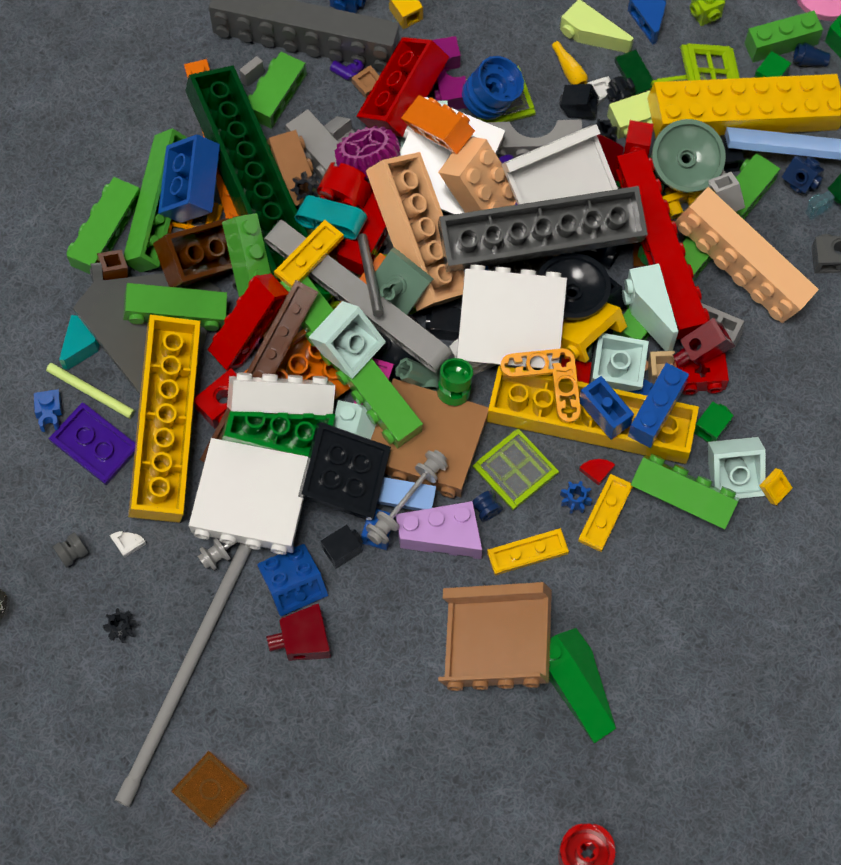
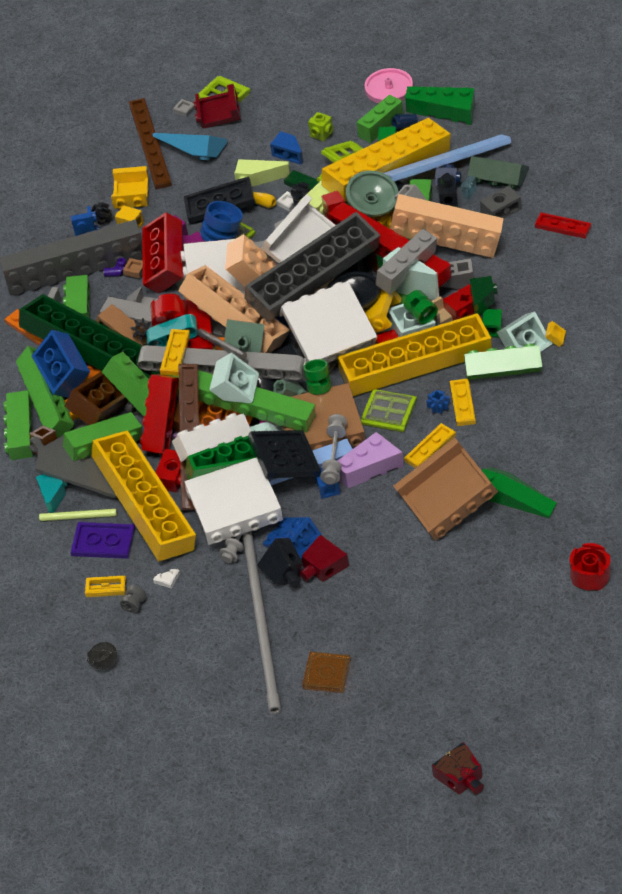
camera: 25 degrees left, 20 degrees down
(47, 408) = (57, 536): blue plate -> none
(73, 519) = (105, 589): none -> yellow tile
(113, 623) = (198, 619): black gear -> none
(251, 615) = (281, 562): none -> black torso
(342, 546) = (310, 503): black brick -> none
(367, 148) = (166, 285): magenta gear -> none
(438, 123) = (205, 246): orange brick -> none
(487, 505) = (389, 434): dark blue wheel -> none
(522, 42) = (235, 192): none -> black plate
(558, 373) = (378, 336): light orange beam -> none
(579, 101) = (278, 208): black brick -> none
(597, 469) = (439, 383): red tile -> none
(606, 407) = (422, 336): blue brick -> none
(634, 360) = (420, 307): none -> green wheel
(636, 295) = (392, 273): none -> light grey arch
(658, 405) = (453, 320): blue brick -> none
(713, 342) = (456, 277): dark red torso -> none
(722, 383) = (482, 293): none -> dark green slope
(786, 200) = (447, 188): none -> black torso

